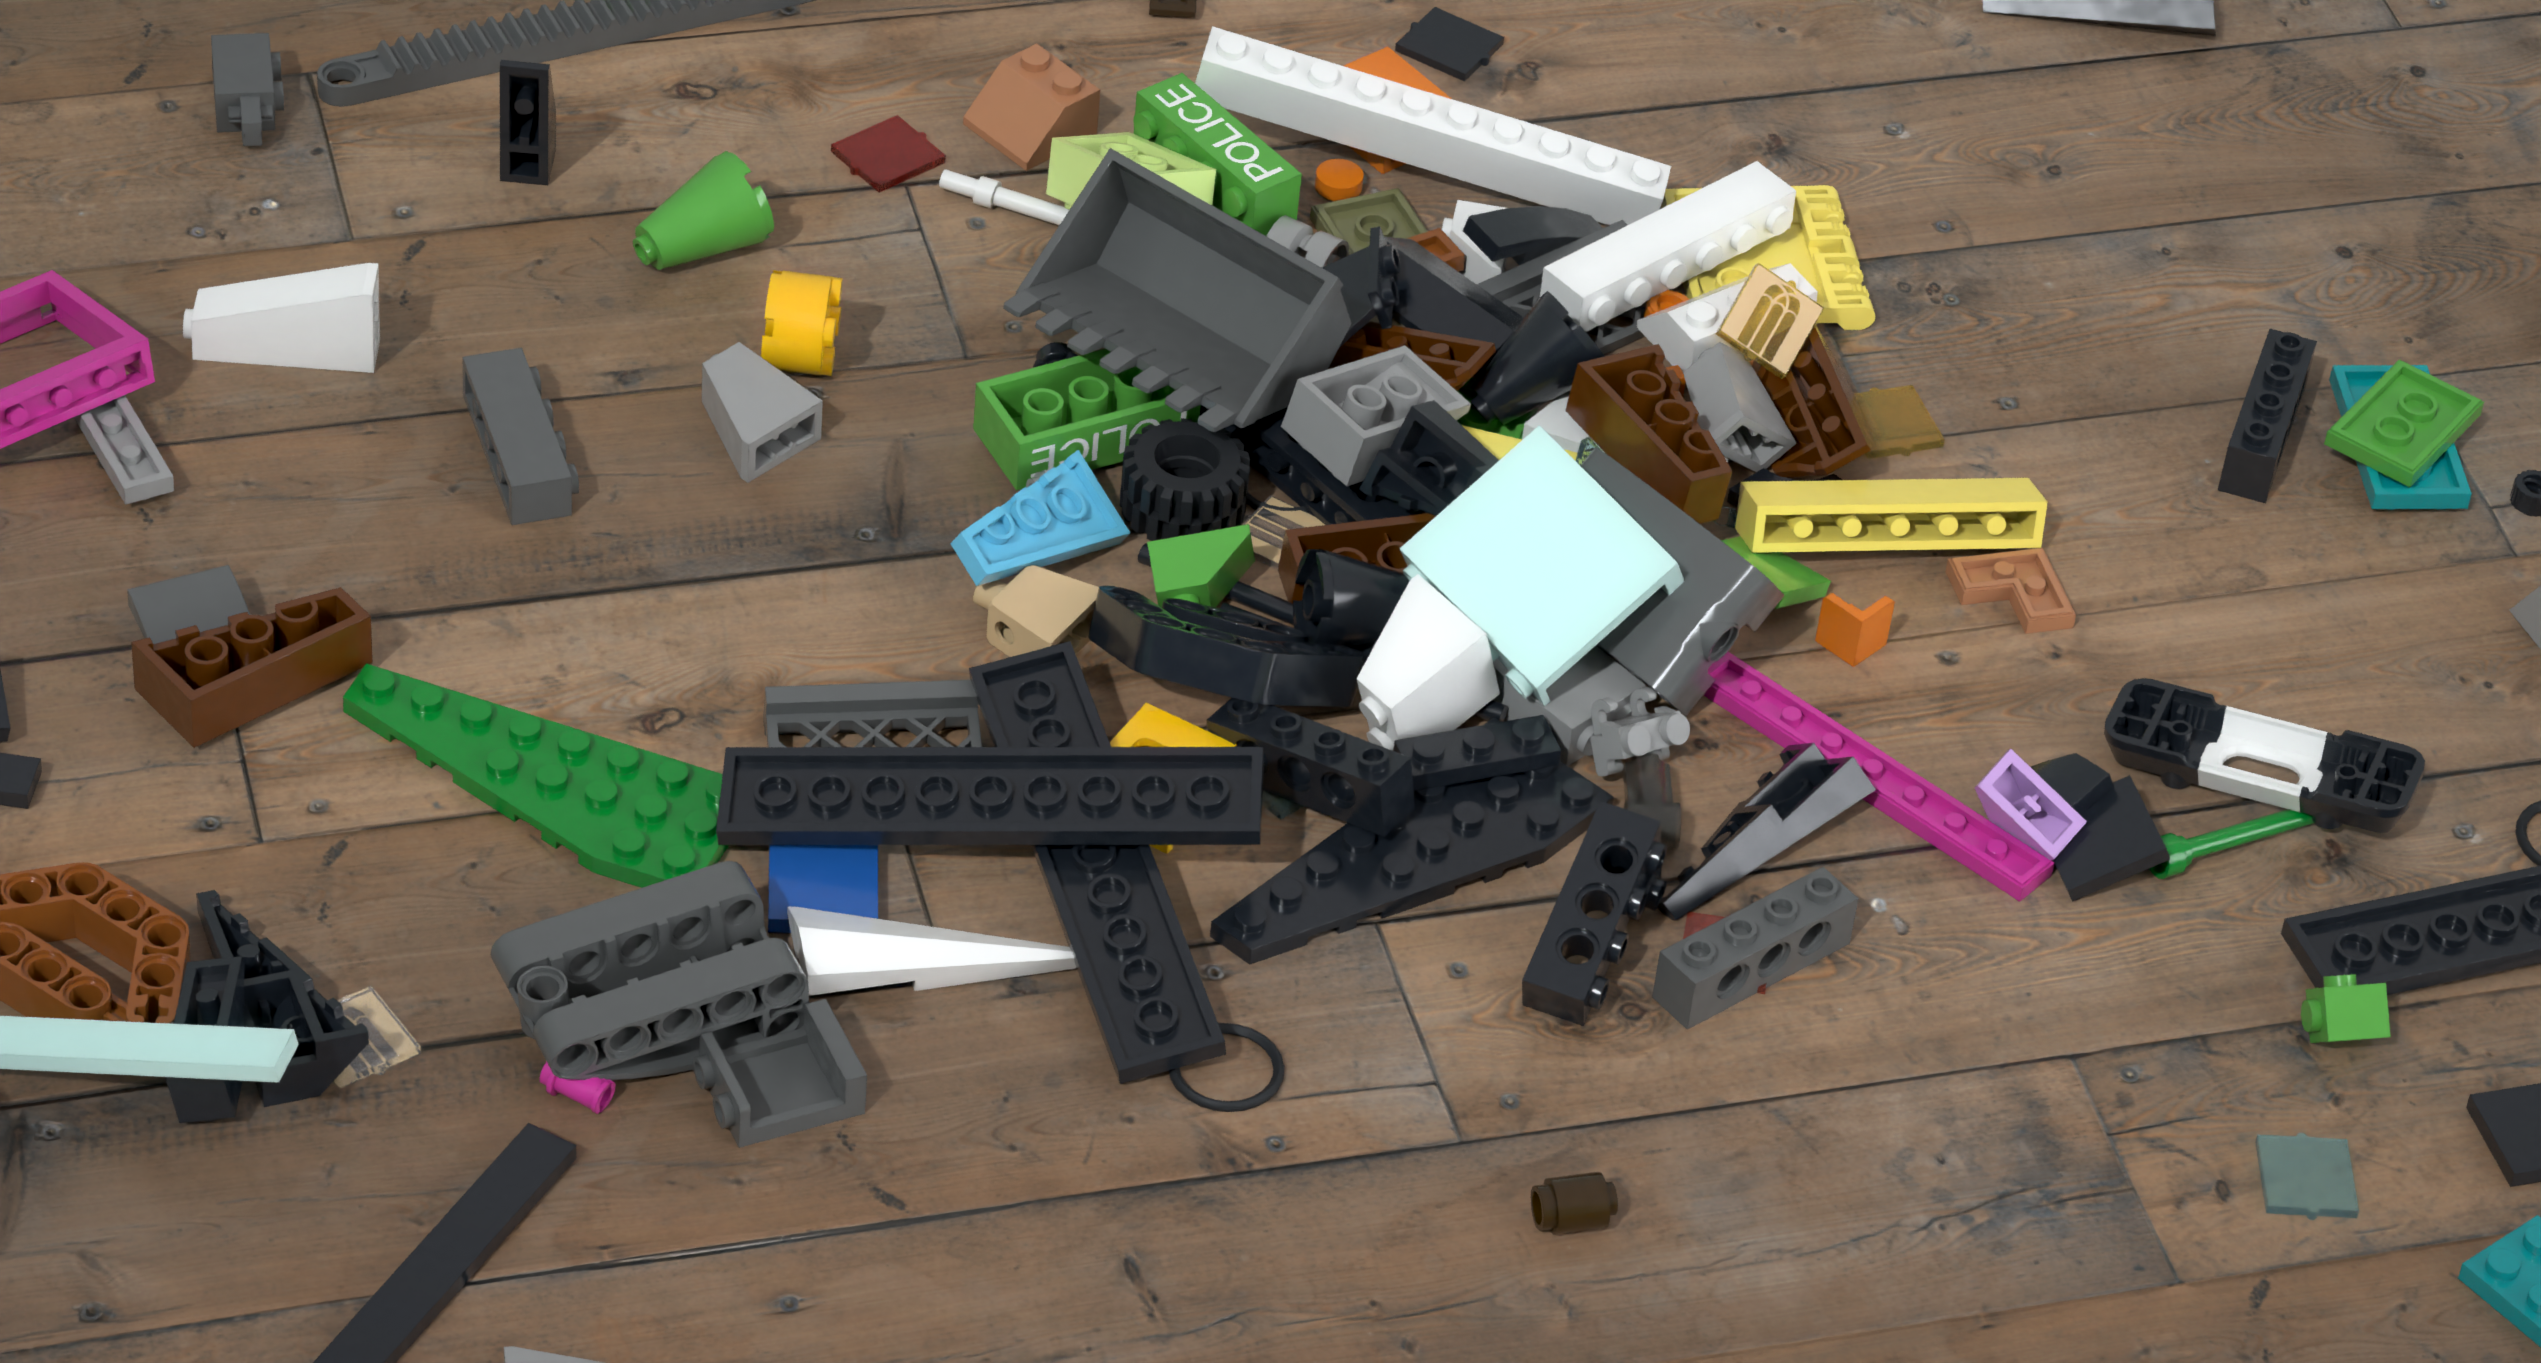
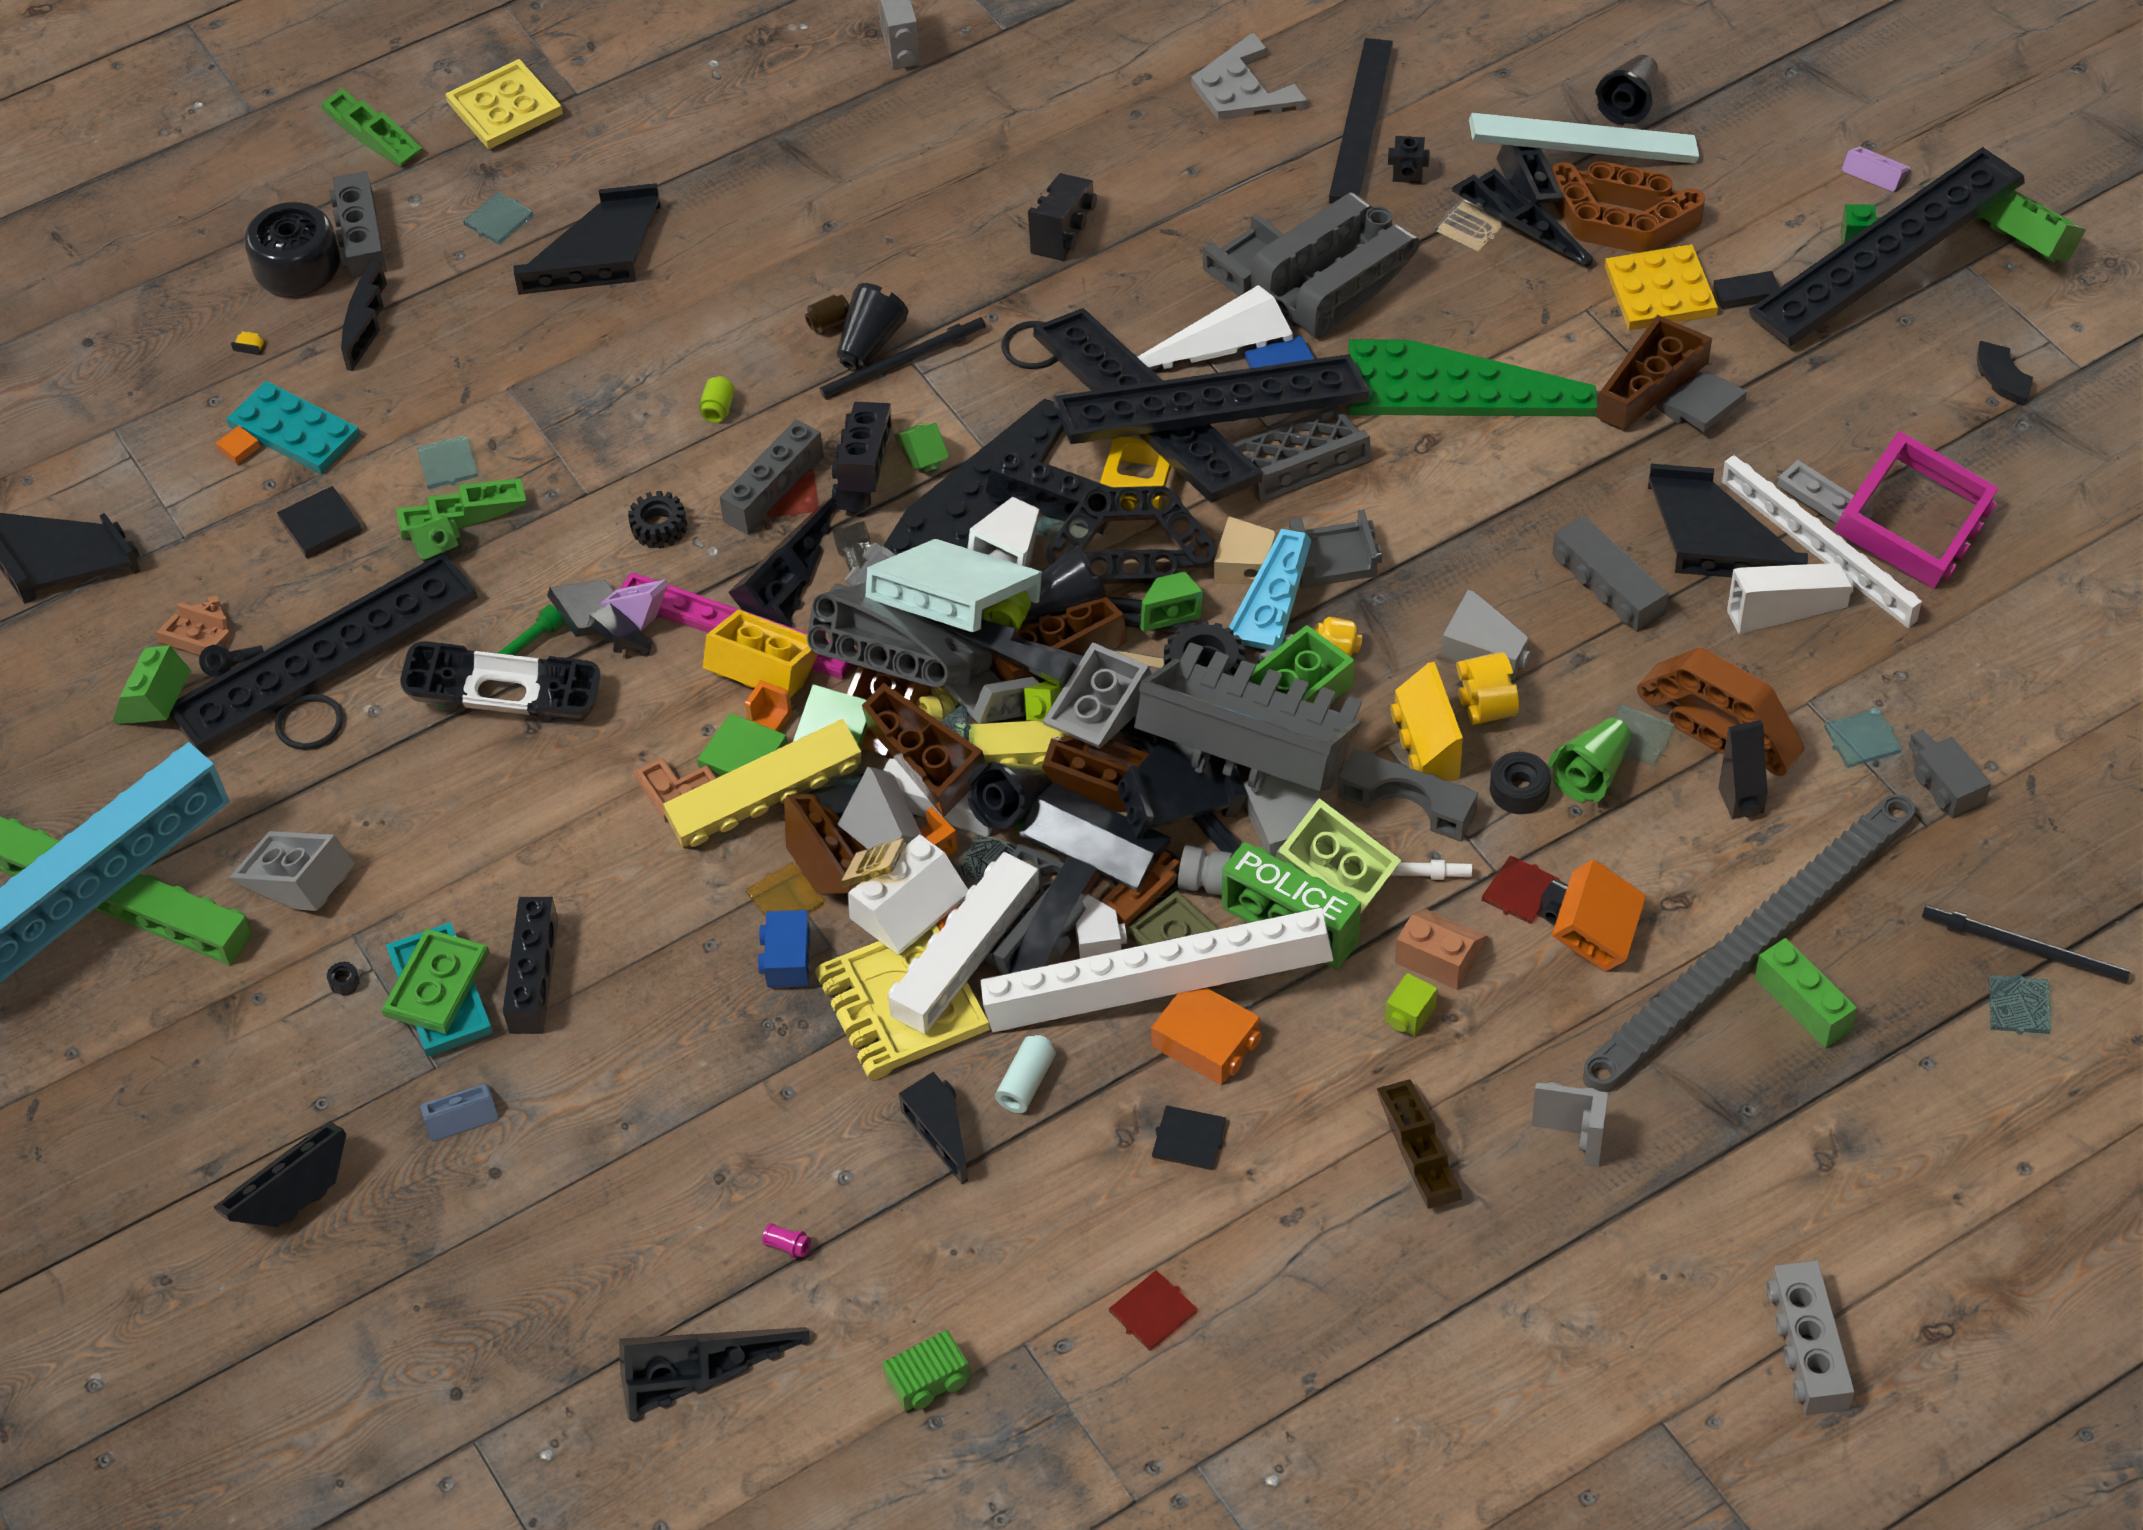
camera: 170 degrees right, 10 degrees up
(122, 817) = (1662, 284): none -> yellow plate
(182, 394) = (1821, 541): none -> white plate
(313, 176) = (1862, 738): none -> clear light blue piece
(318, 443) = (1710, 528): none -> black piece
(396, 1151) = (1408, 153): none -> black brick
(508, 191) = (1714, 695): none -> dark orange piece
(610, 267) = (1647, 732): none -> clear light blue piece
(817, 239) = (1516, 799): none -> black tyre
(820, 53) = (1599, 915): none -> orange brick
(853, 104) = (1552, 900): none -> black plate
(899, 596) = (1339, 552): none -> dark grey panel
(911, 313) = (1428, 725): none -> yellow slope
(934, 240) = (1372, 779): none -> dark grey arch
(970, 469) = (1341, 634): none -> yellow head
(1086, 1234) = (1060, 216): none -> black wedge
(1111, 61) = (1410, 1005): none -> lime brick
(1358, 1111) = (954, 334): none -> black bar
(1489, 933) = (922, 446): none -> bright green slope
(1504, 1140) = (869, 324): none -> black cone
(1641, 126) = (1025, 1073): none -> light aqua brick
(1766, 121) = (933, 1113): none -> black slope
(1814, 1115) = (716, 399): none -> lime brick
(1848, 683) = (758, 650): none -> yellow slope
(1910, 330) = (786, 948): none -> blue brick
(1924, 600) = (739, 743): none -> bright green tile
(1959, 974) = (657, 506): none -> black tyre
(1977, 67) = (786, 1240): none -> dark pink pin
(2307, 1074) = (470, 506): none -> bright green slope
(2386, 314) = (459, 1112): none -> sand blue slope

